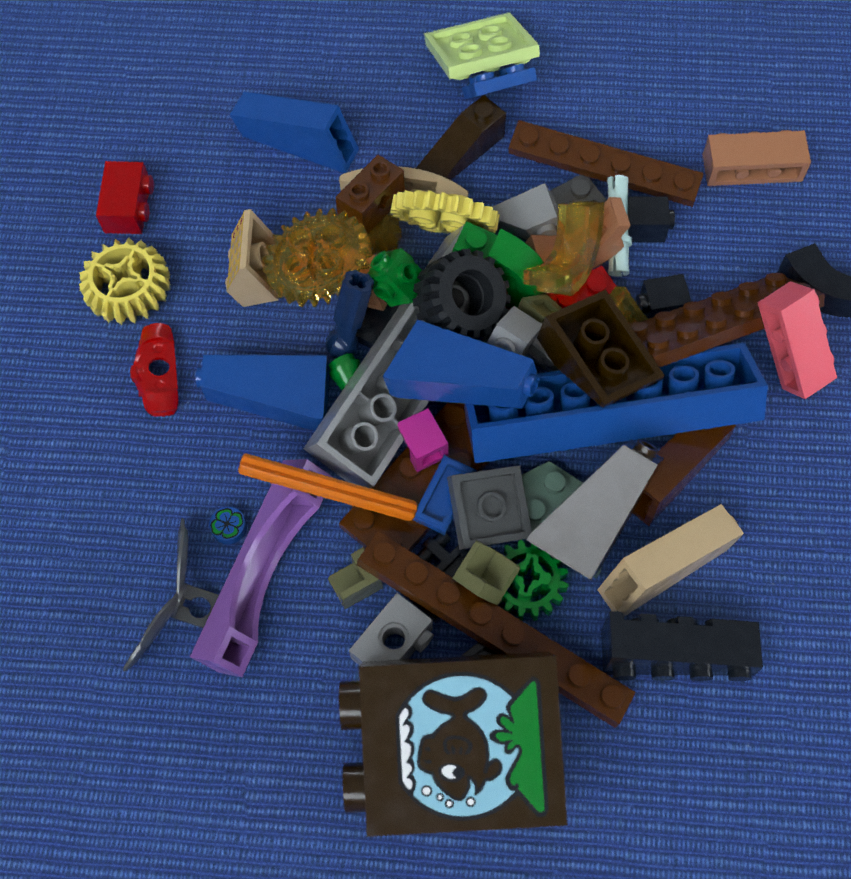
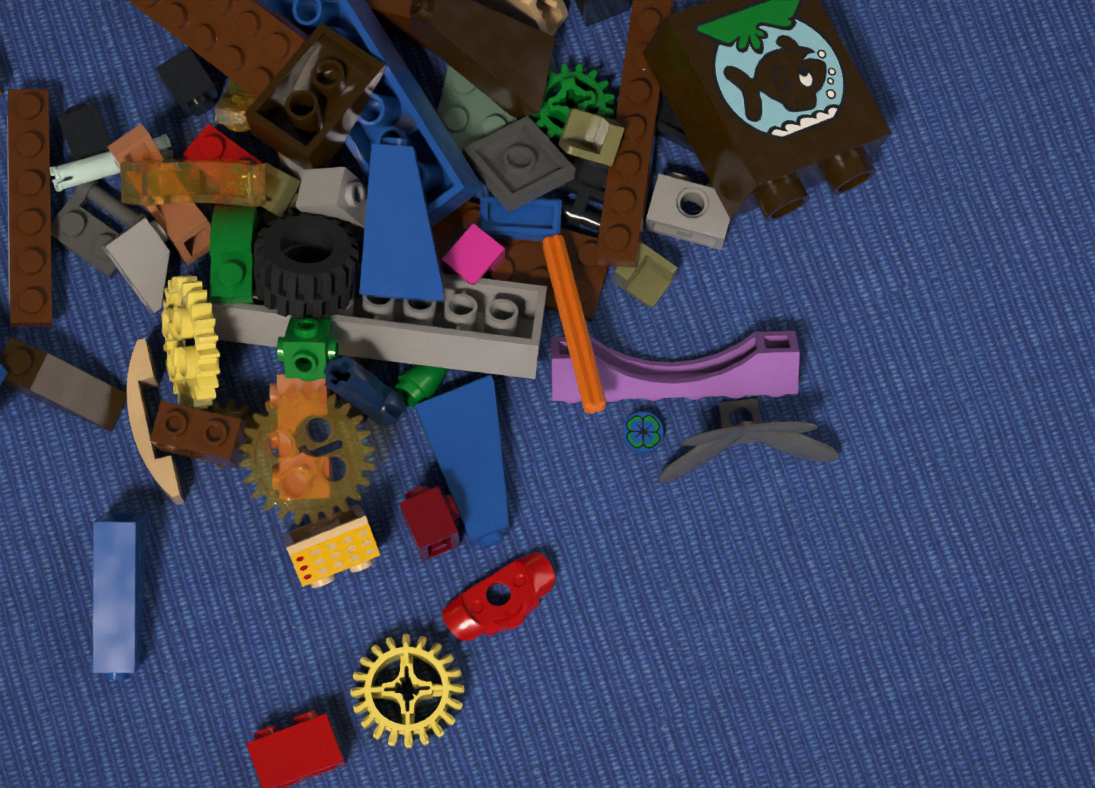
camera: 120 degrees left, 10 degrees up
(230, 327) = (430, 521): none -> dark red brick

